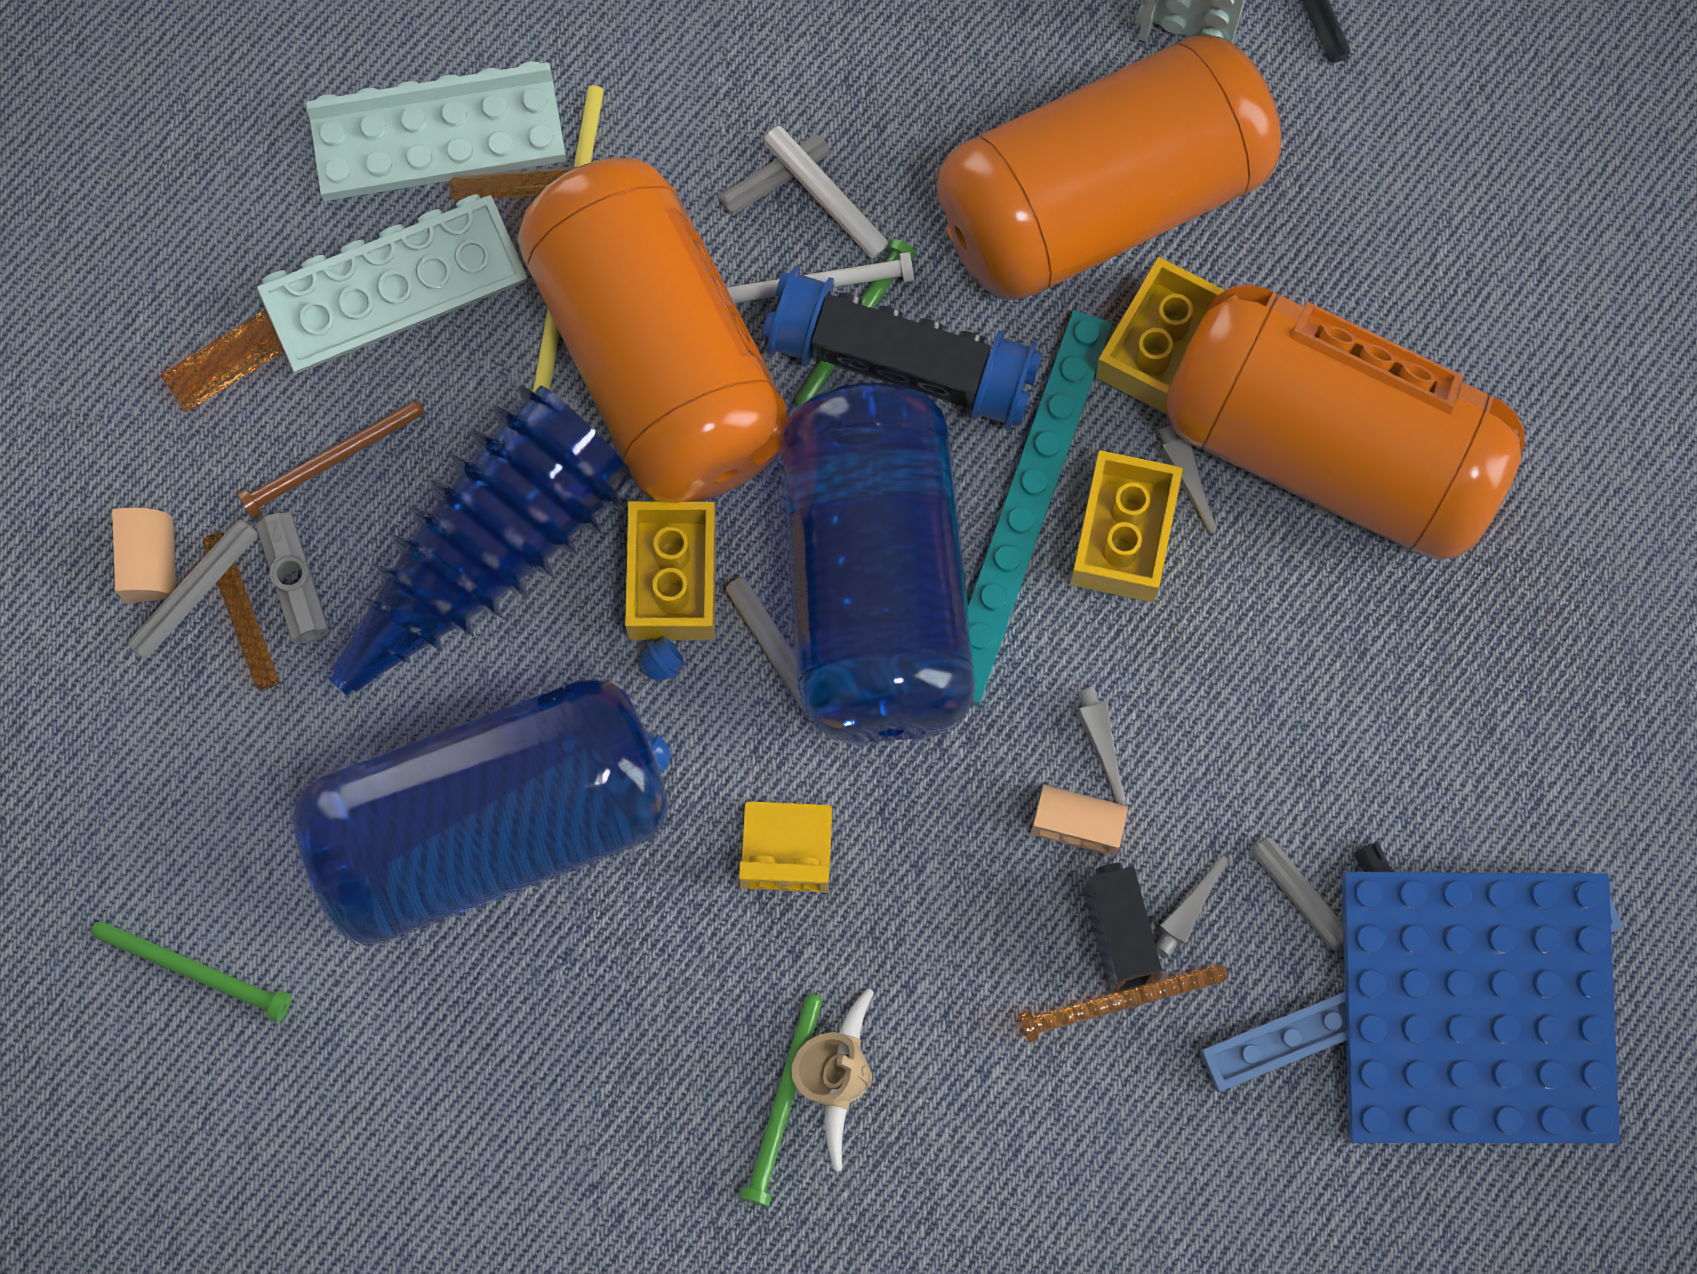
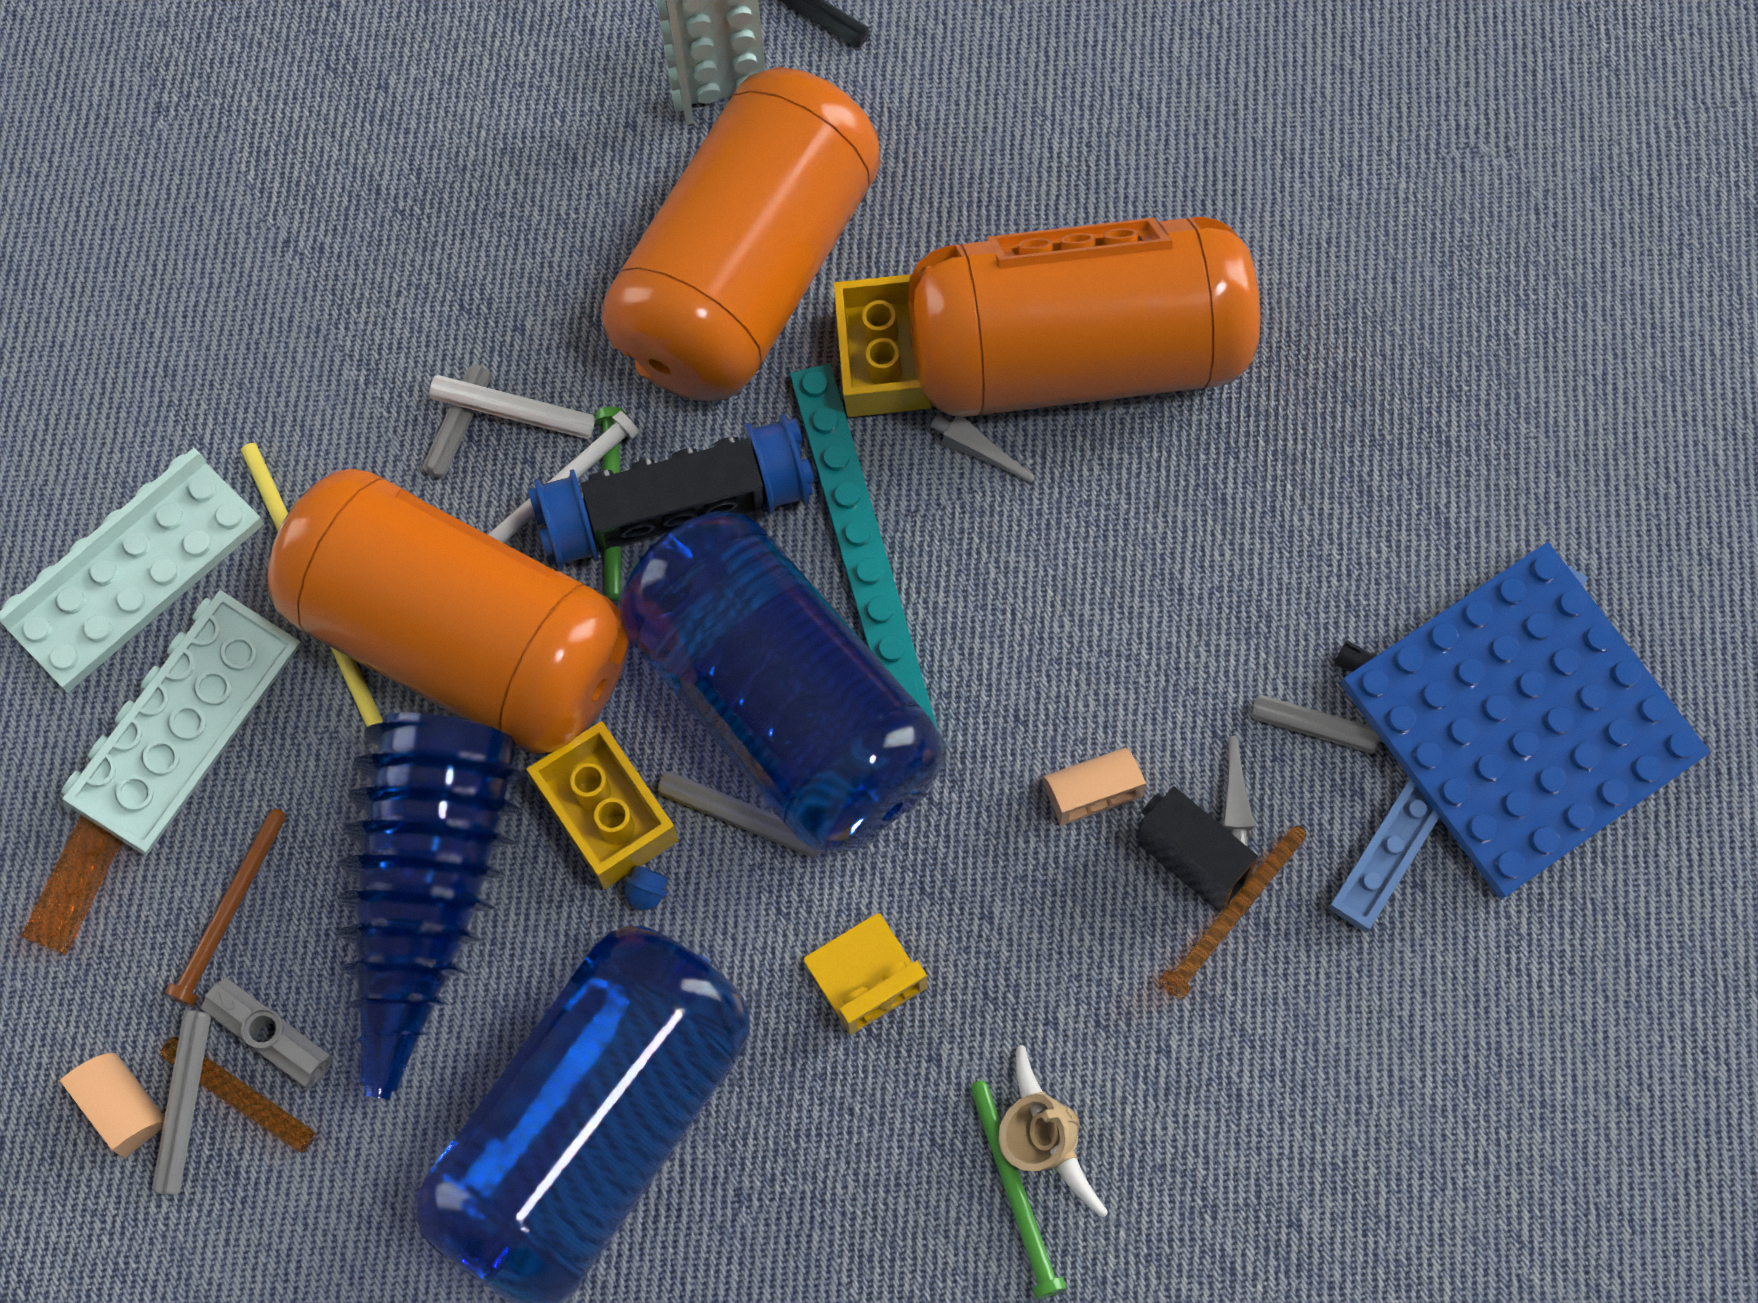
camera: 30 degrees left, 5 degrees down
(505, 184) = (228, 572): clear orange axle -> none
(1097, 725) = (1051, 697): light grey piece -> none
(1126, 526) = (962, 518): yellow brick -> none

